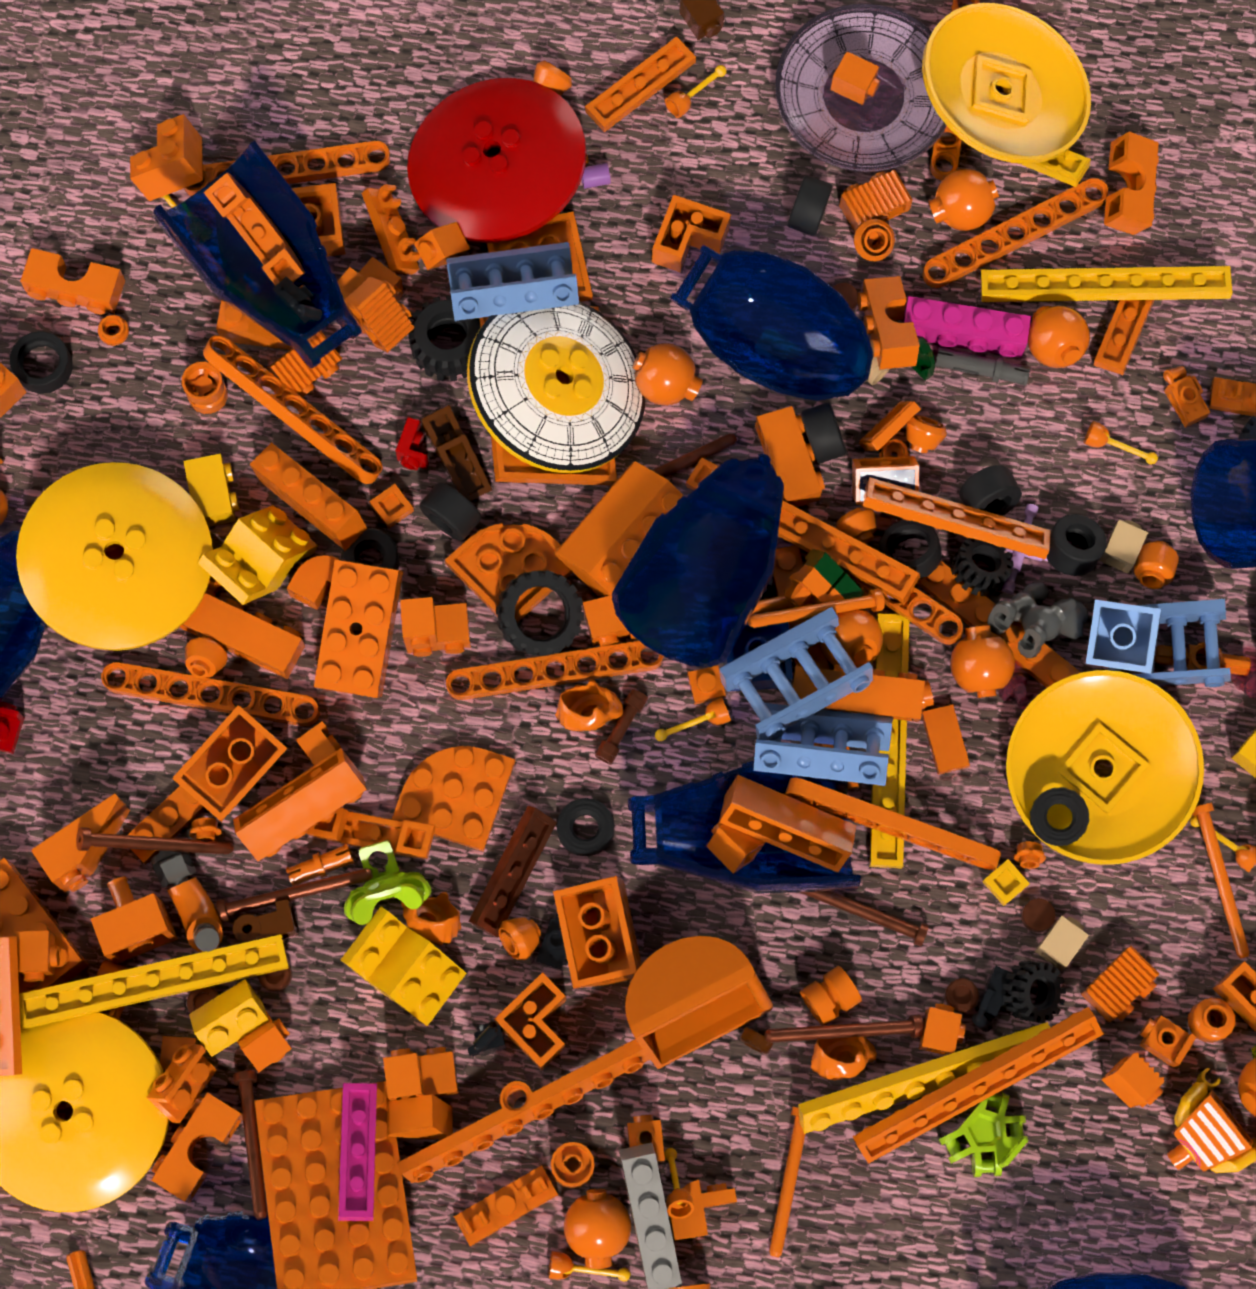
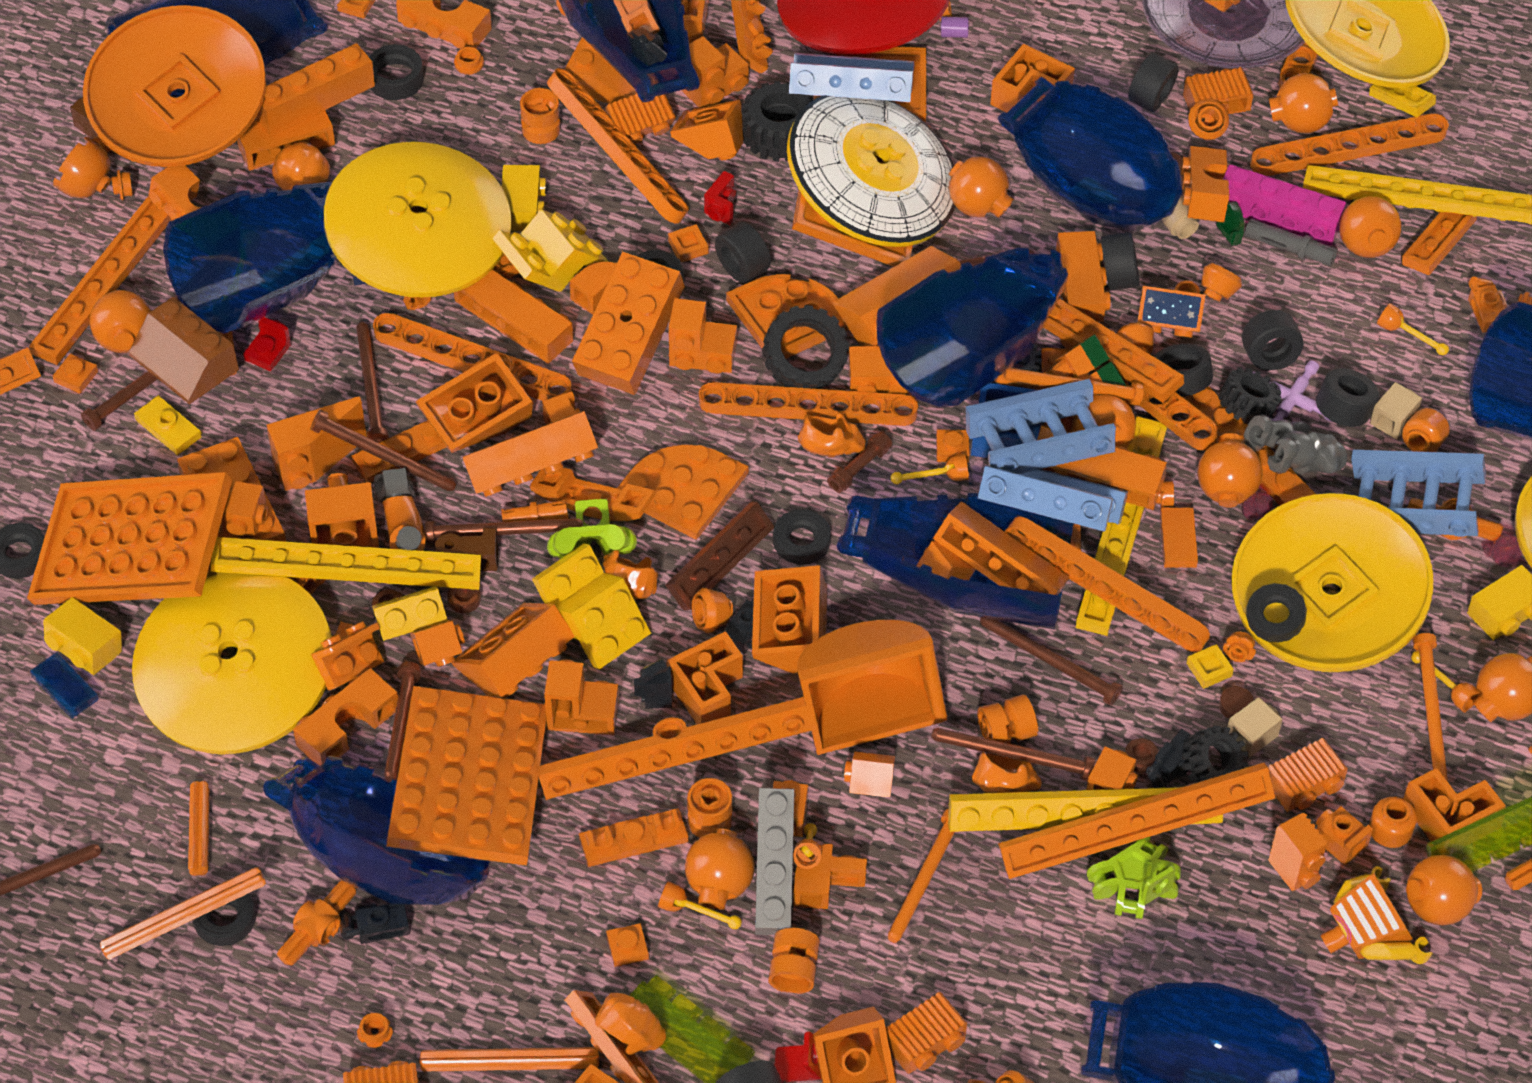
camera: 15 degrees right, 20 degrees down
(140, 807) = (376, 432): none -> copper bar
(204, 657) = (476, 323): orange cone -> none
(205, 829) = (434, 459): orange plate -> none
(308, 496) = (611, 212): orange brick -> none
(339, 1026) = (515, 649): none -> orange slope
(357, 1152) = (501, 739): dark pink plate -> none
(377, 371) = (711, 130): none -> orange slope
(379, 313) = (720, 75): orange brick -> none
(419, 1118) = (569, 732): orange slope -> none
(441, 244) = (791, 41): orange brick -> none
(455, 452) = (761, 207): reddish brown slope -> none
(715, 1088) = (870, 774): none -> brick
(755, 1041) = (922, 746): reddish brown tile -> none
(889, 425) = (1186, 269): orange tile -> none
(957, 518) = (1225, 342): orange plate -> none
(1123, 636) = (1375, 465): light blue brick -> none
(1137, 162) = (1469, 136): orange arch -> none

